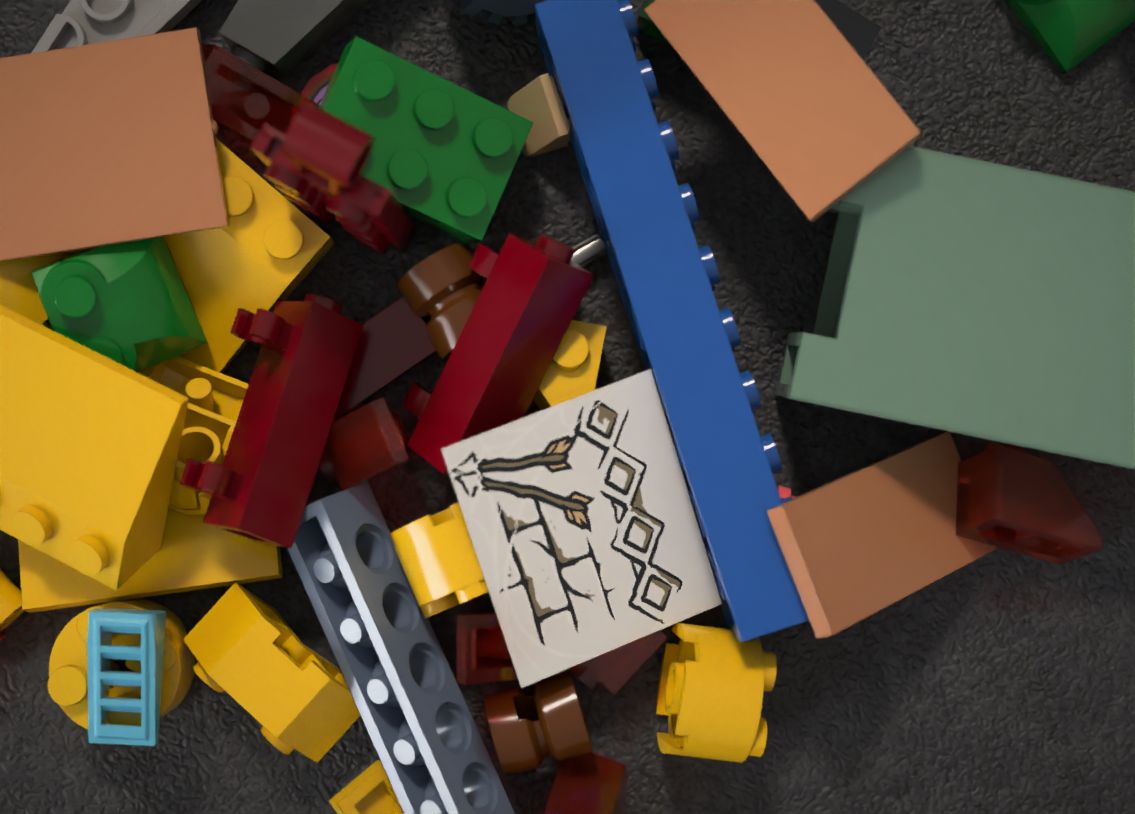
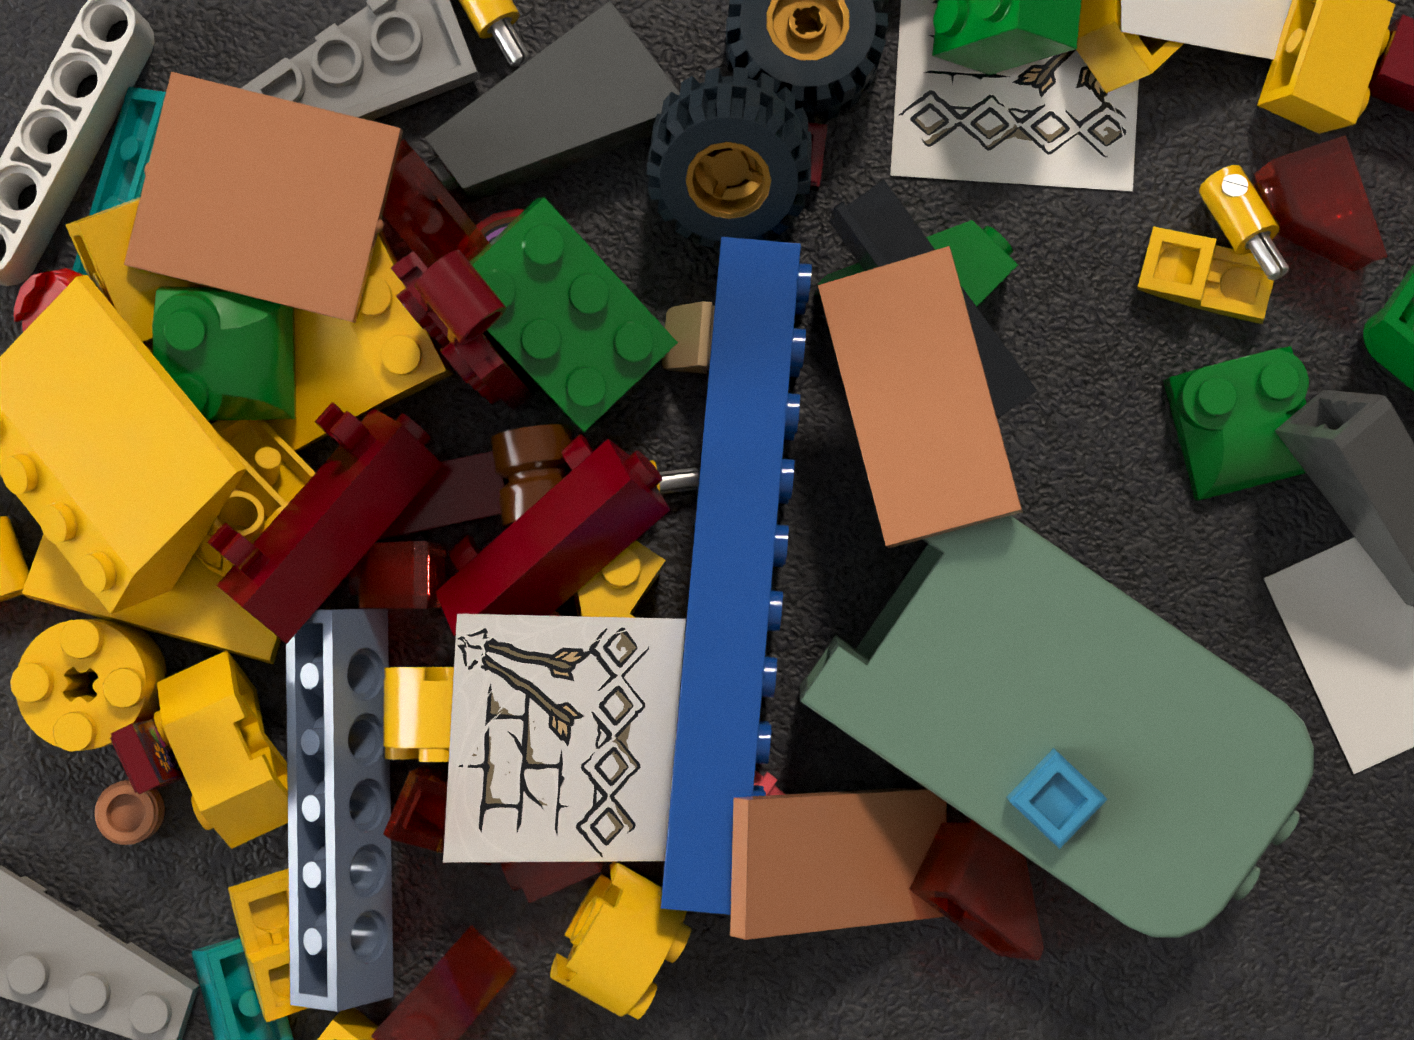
camera: 30 degrees right, 0 degrees up
(99, 655) = (126, 663): medium azure slope -> none
(205, 709) = (146, 756): none -> dark red tile
(206, 771) = (128, 816): none -> nougat tile
(537, 724) = (448, 899): reddish brown wheel -> none
(1061, 385) = (1056, 798): none -> dark azure tile

